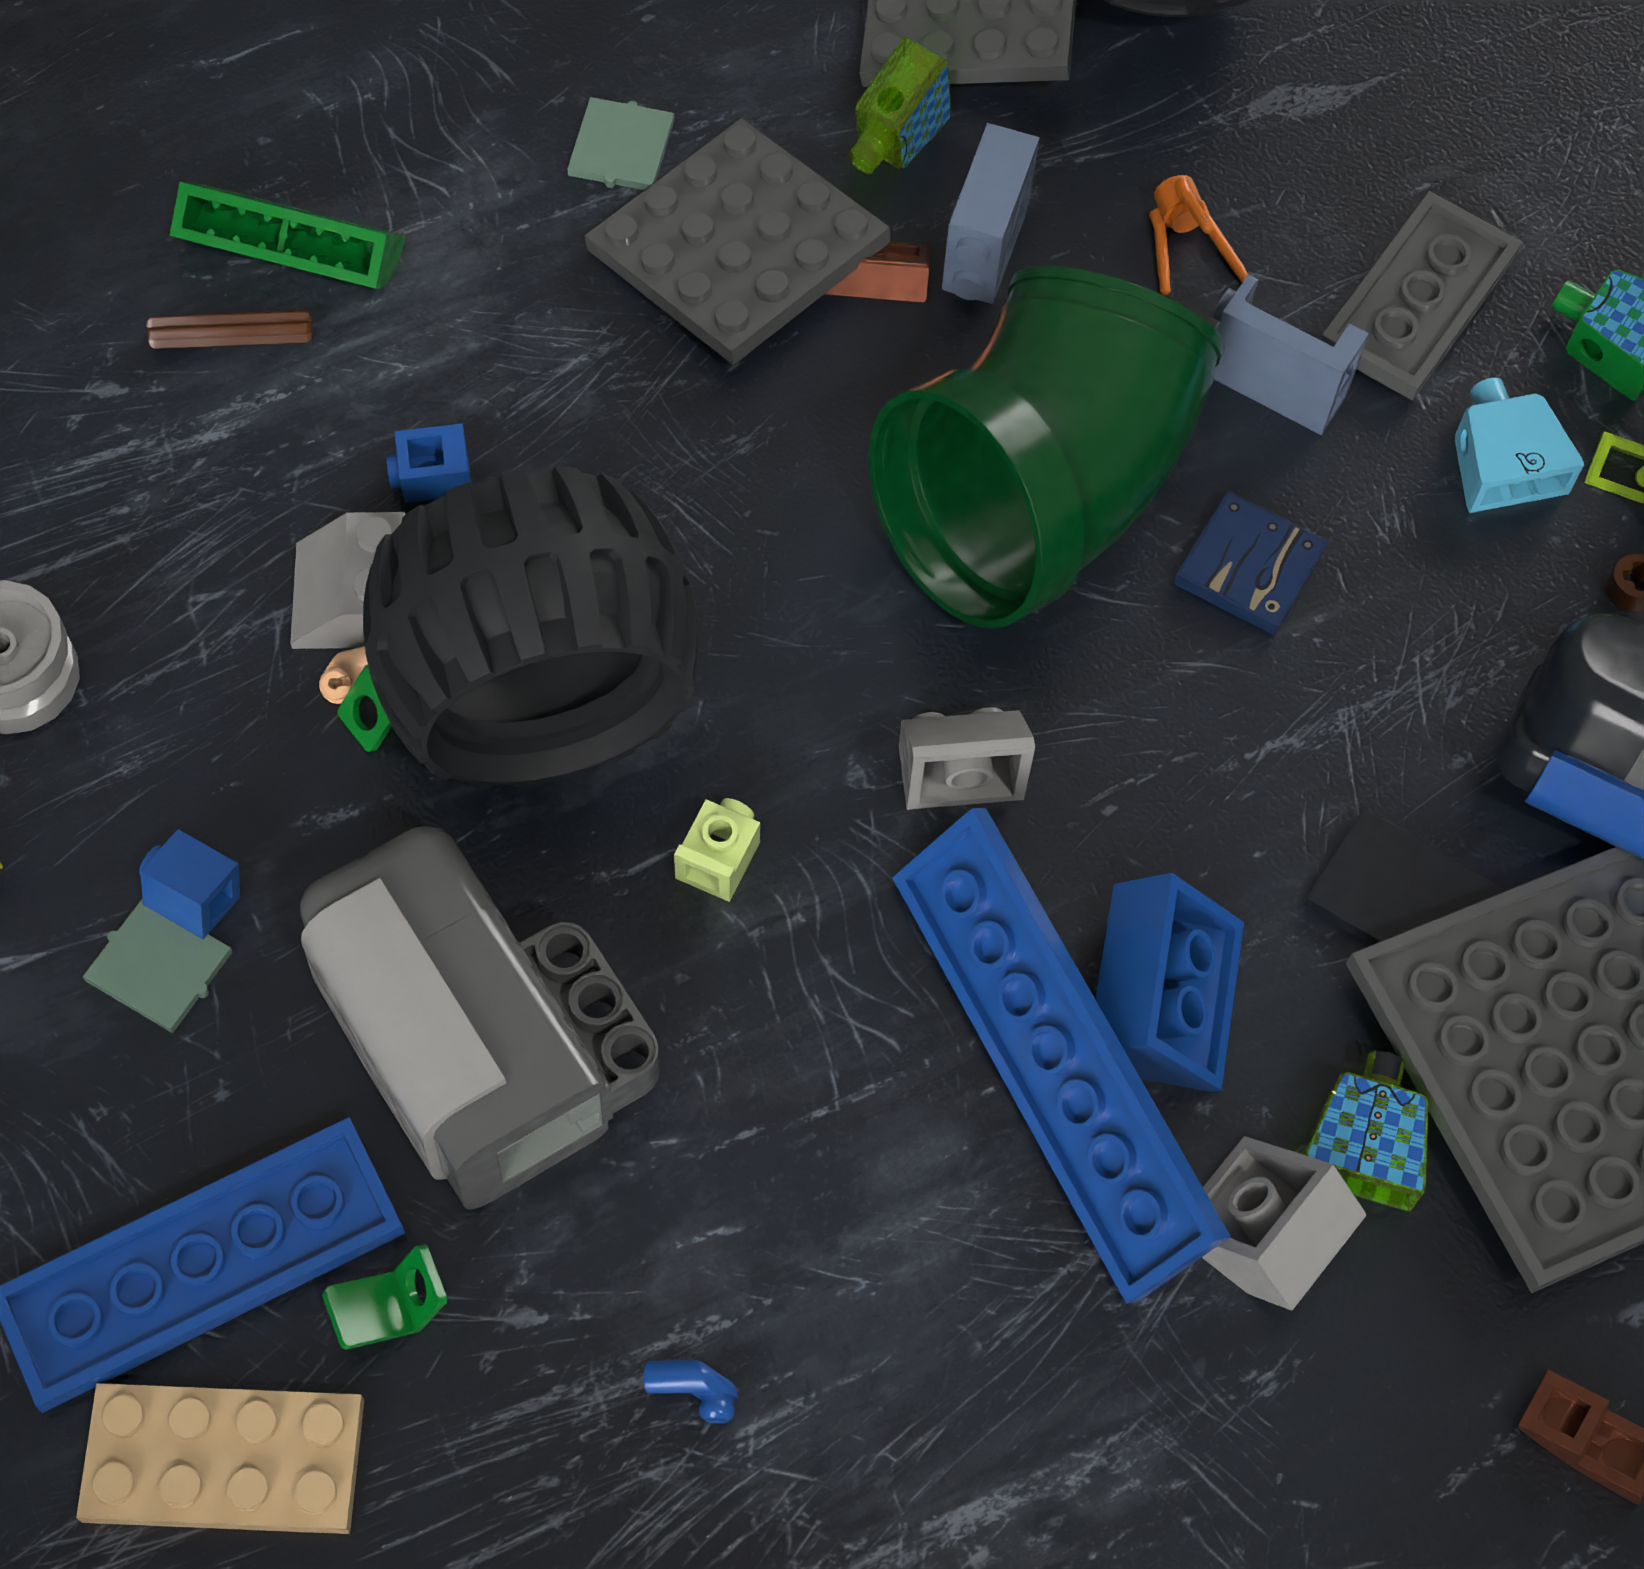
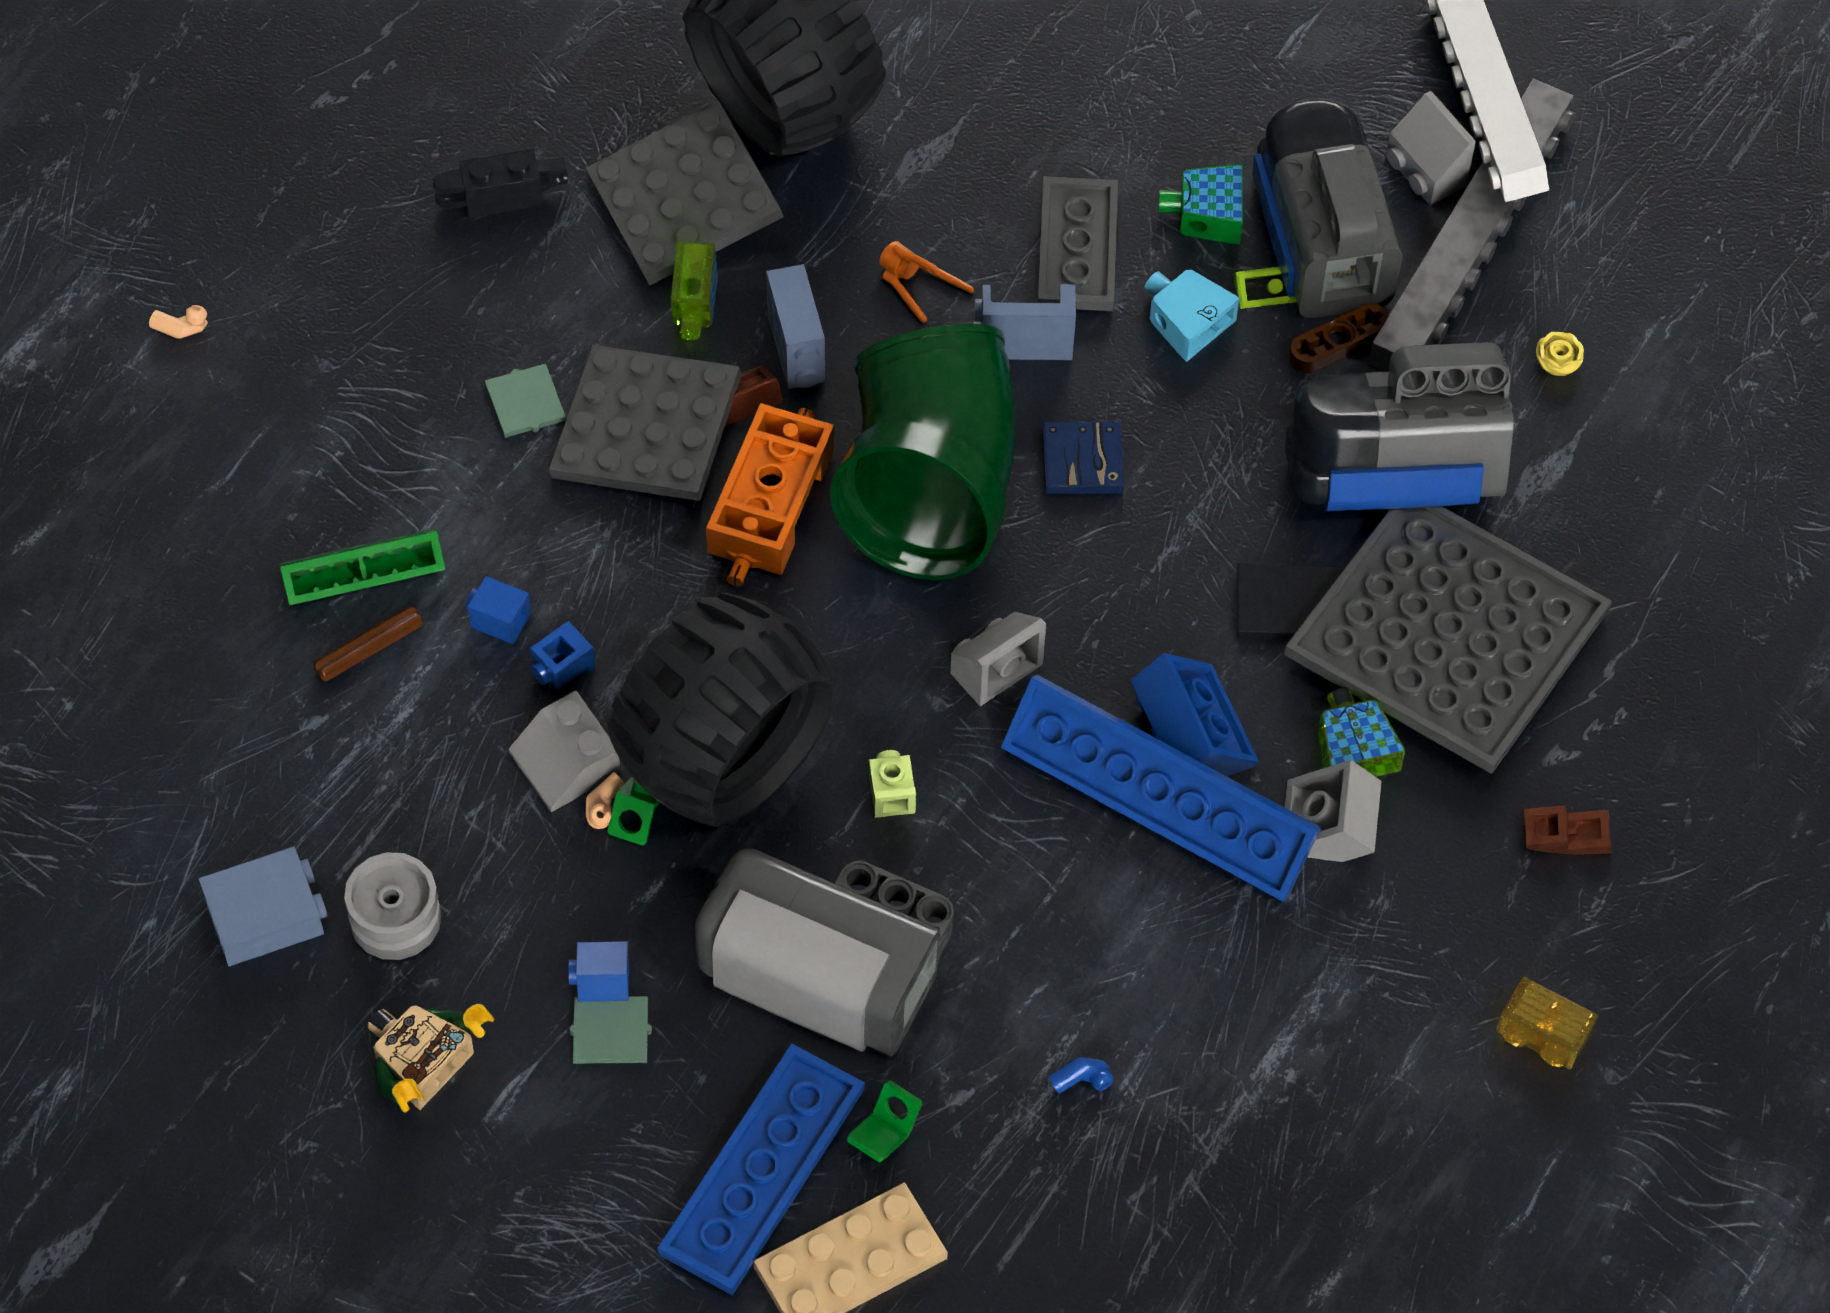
camera: 30 degrees left, 5 degrees down
(402, 369) = (498, 609): none -> blue brick
(776, 421) = (758, 521): none -> orange brick

